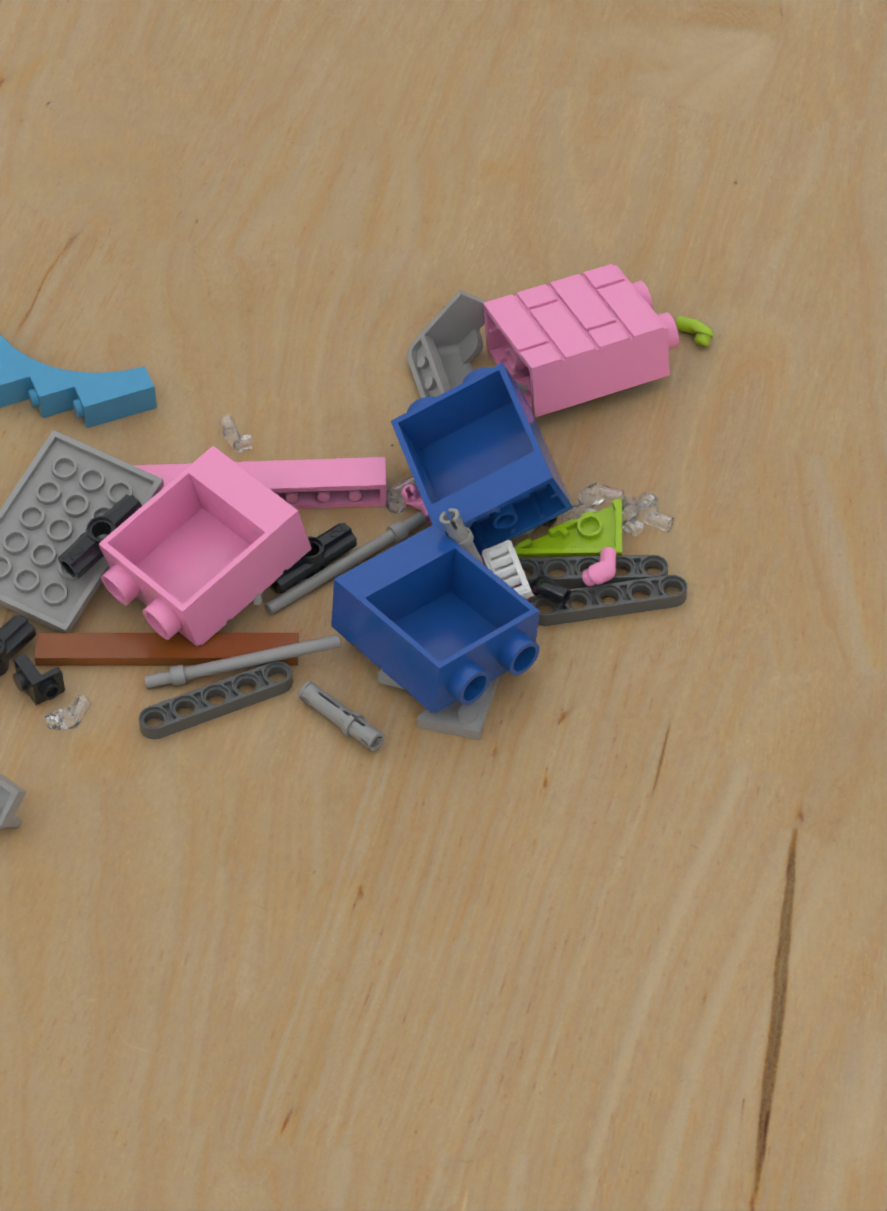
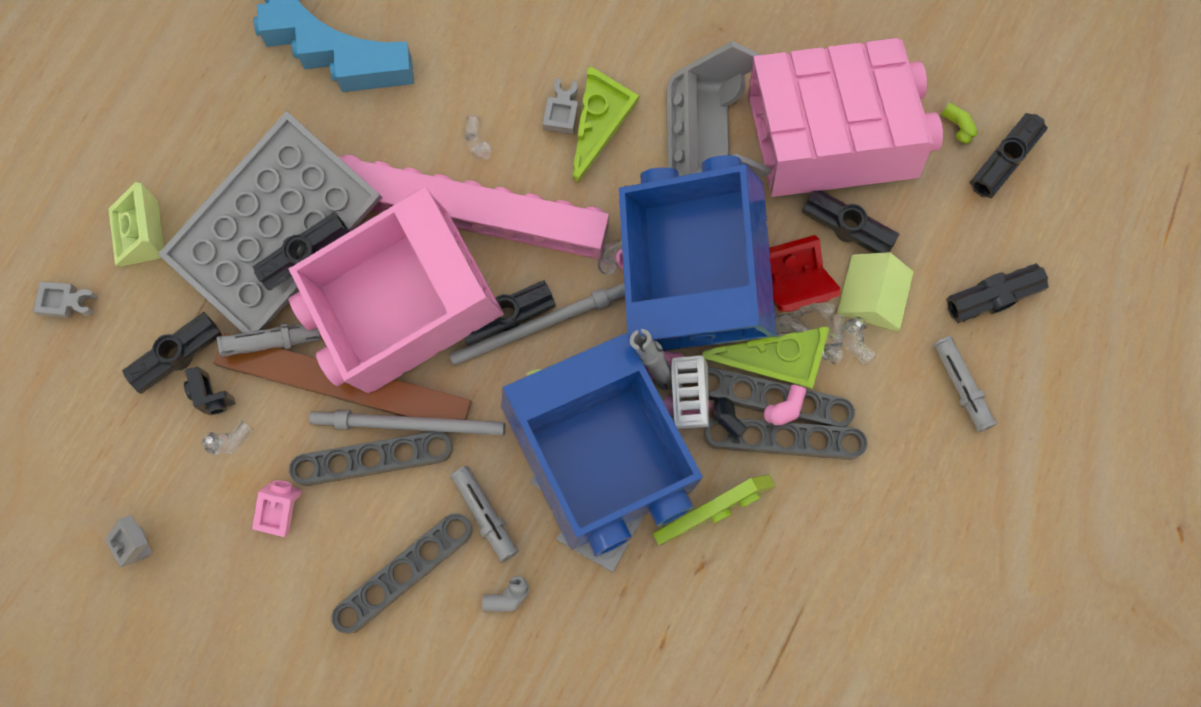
camera: 15 degrees right, 25 degrees up
(98, 620) = (266, 339): none -> light grey pin
(135, 754) = (275, 508): none -> bright pink bracket
(276, 793) = (386, 579): none -> dark grey beam
(311, 394) = (561, 111): none -> light grey plate
(351, 392) = (603, 112): none -> lime wing
(388, 775) = (510, 599): none -> light grey arm
(574, 648) = (717, 509): none -> lime wing
(581, 465) = (800, 275): none -> red bracket
(616, 423) = (833, 212): none -> black piece
(659, 468) = (876, 289): none -> yellowish green slope
(747, 343) = (1018, 145): none -> black piece
(770, 448) = (997, 293): none -> black piece
(786, 542) = (970, 395): none -> light grey pin

